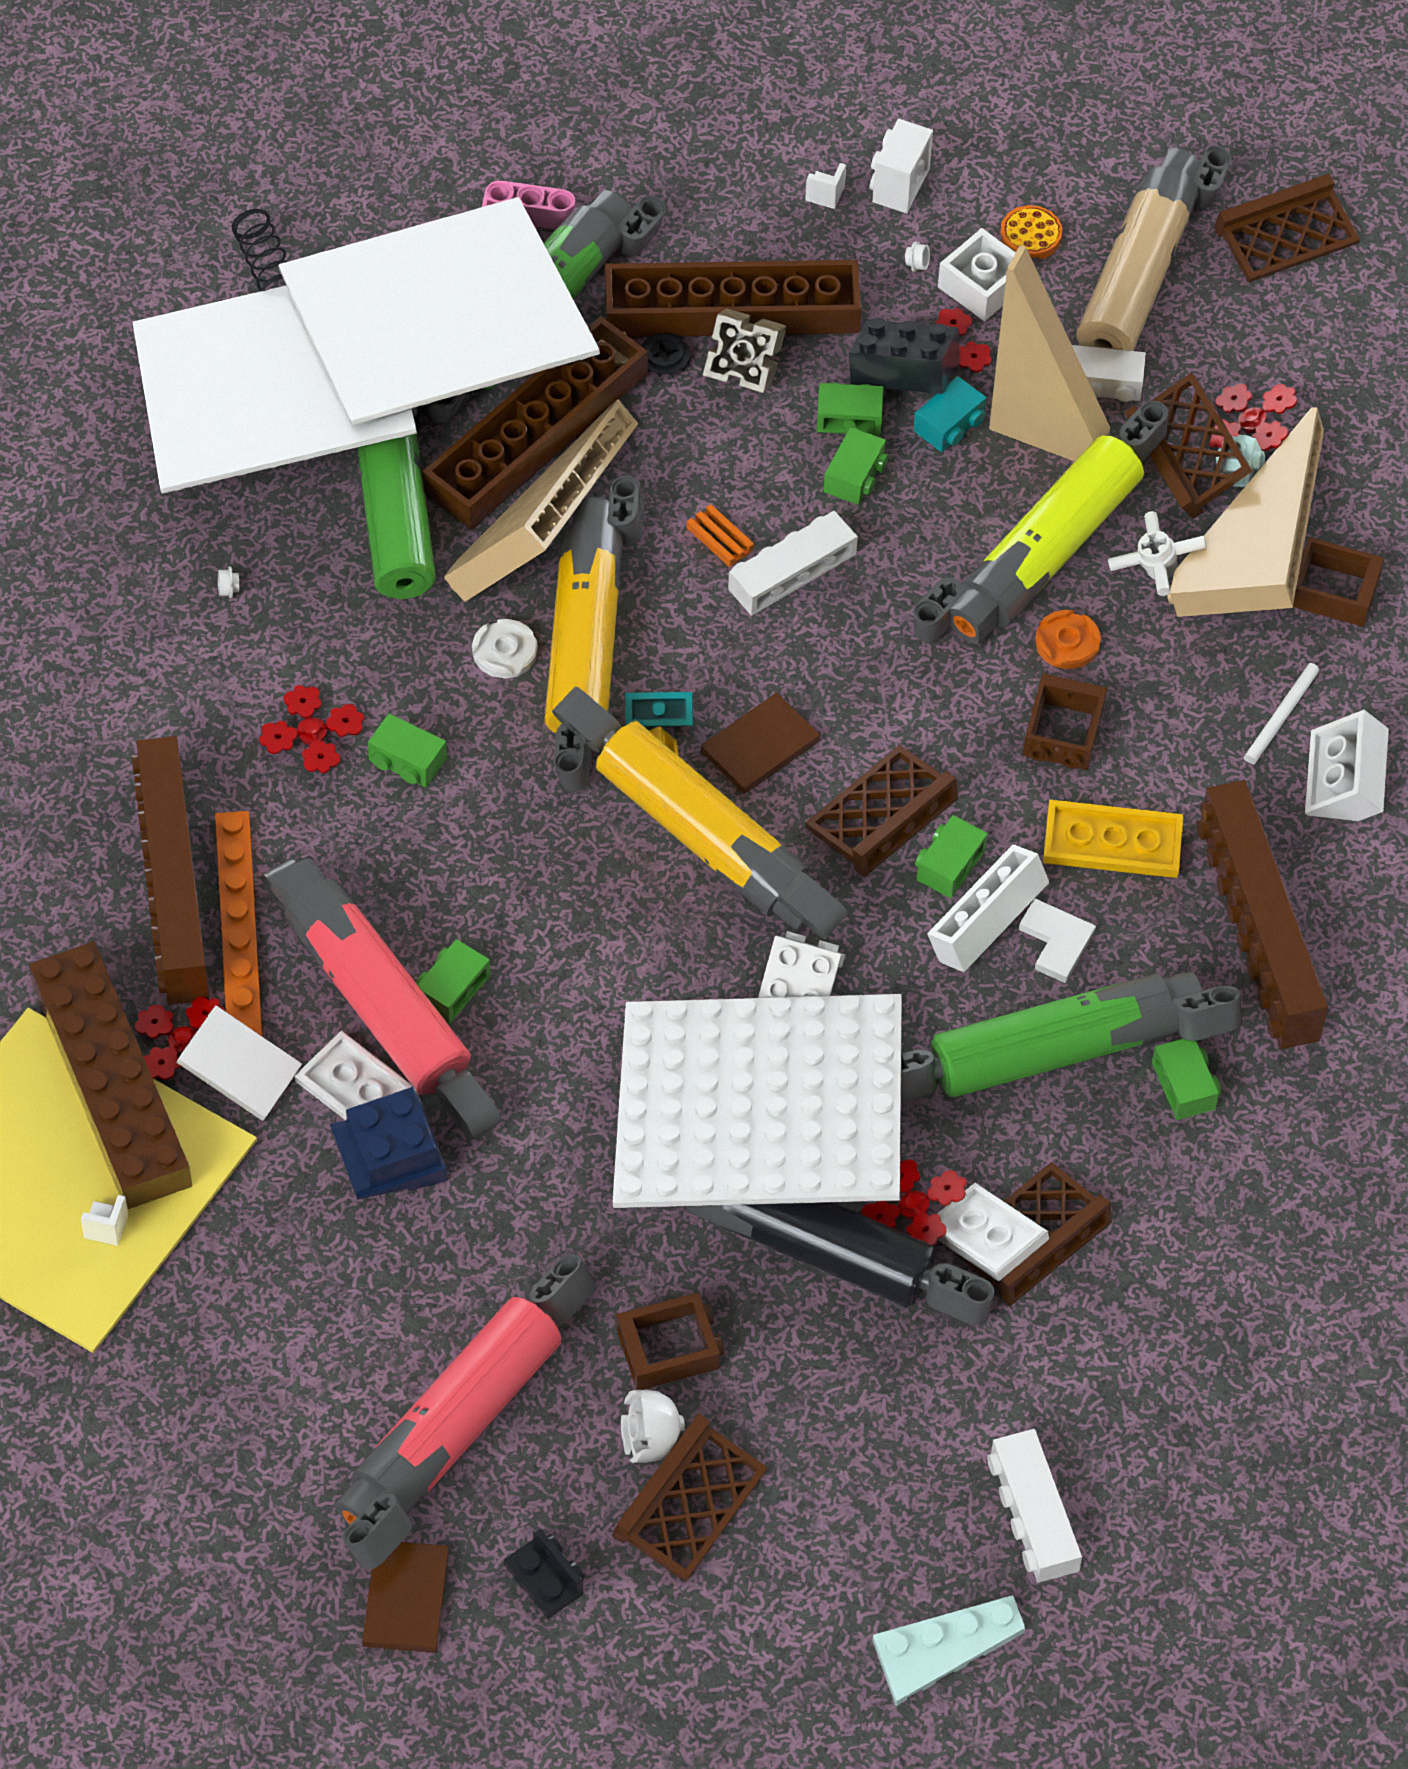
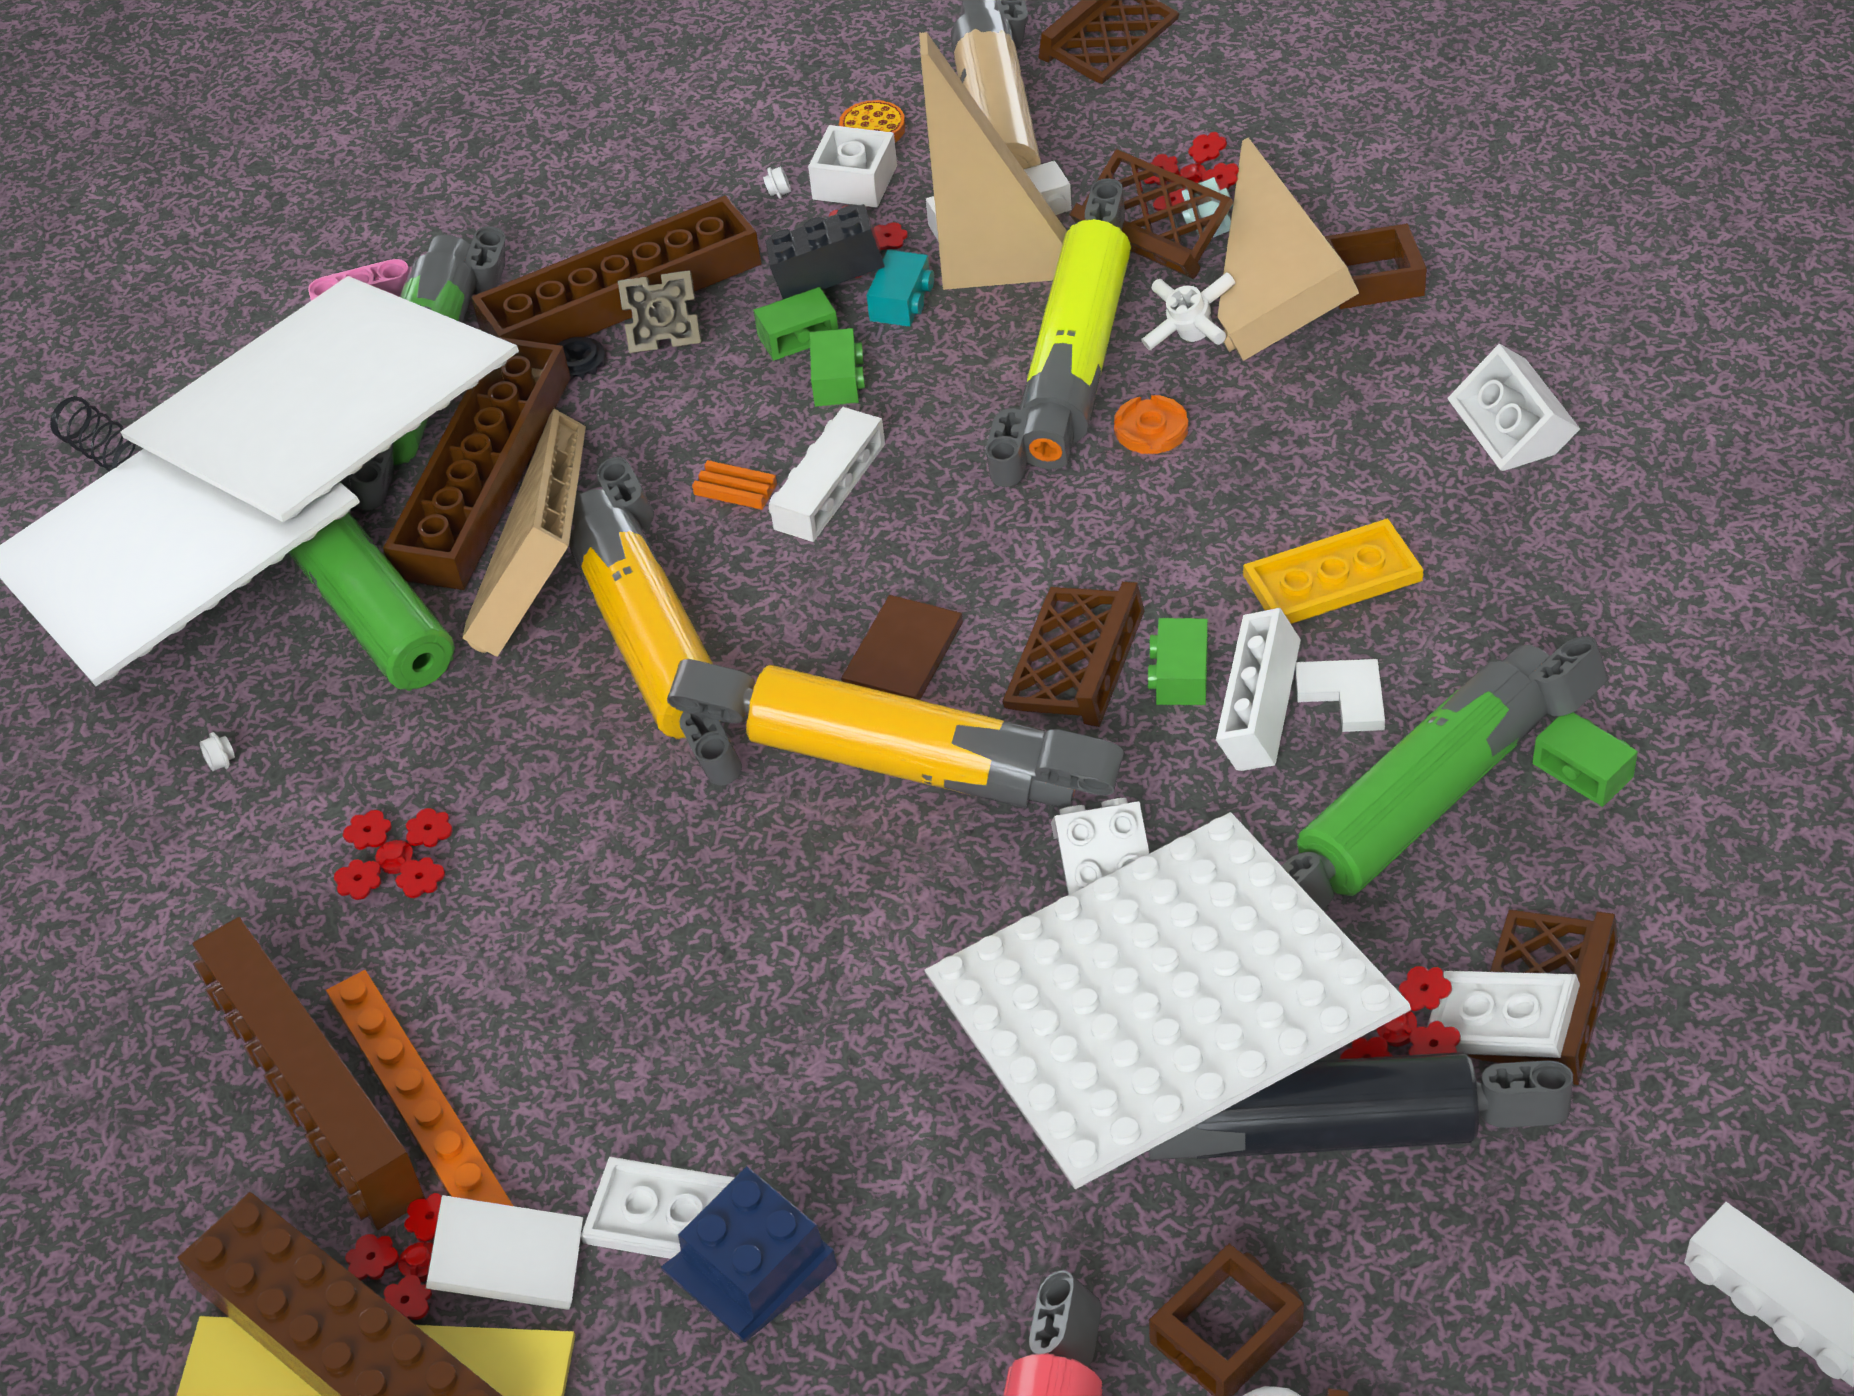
camera: 20 degrees left, 10 degrees down
(381, 991) = (638, 1086): coral piece -> none
(407, 750) = (517, 825): bright green brick -> none
(454, 979) = (710, 1039): bright green brick -> none
(505, 659) = (571, 692): white tile -> none
(660, 709) = (789, 649): teal brick -> none
(824, 188) = (651, 164): white panel -> none
(901, 165) = (714, 114): white brick -> none
(1057, 692) = (1215, 462): reddish brown window -> none
(1262, 915) = (1547, 567): reddish brown brick -> none
(1281, 713) = (1408, 396): white bar -> none

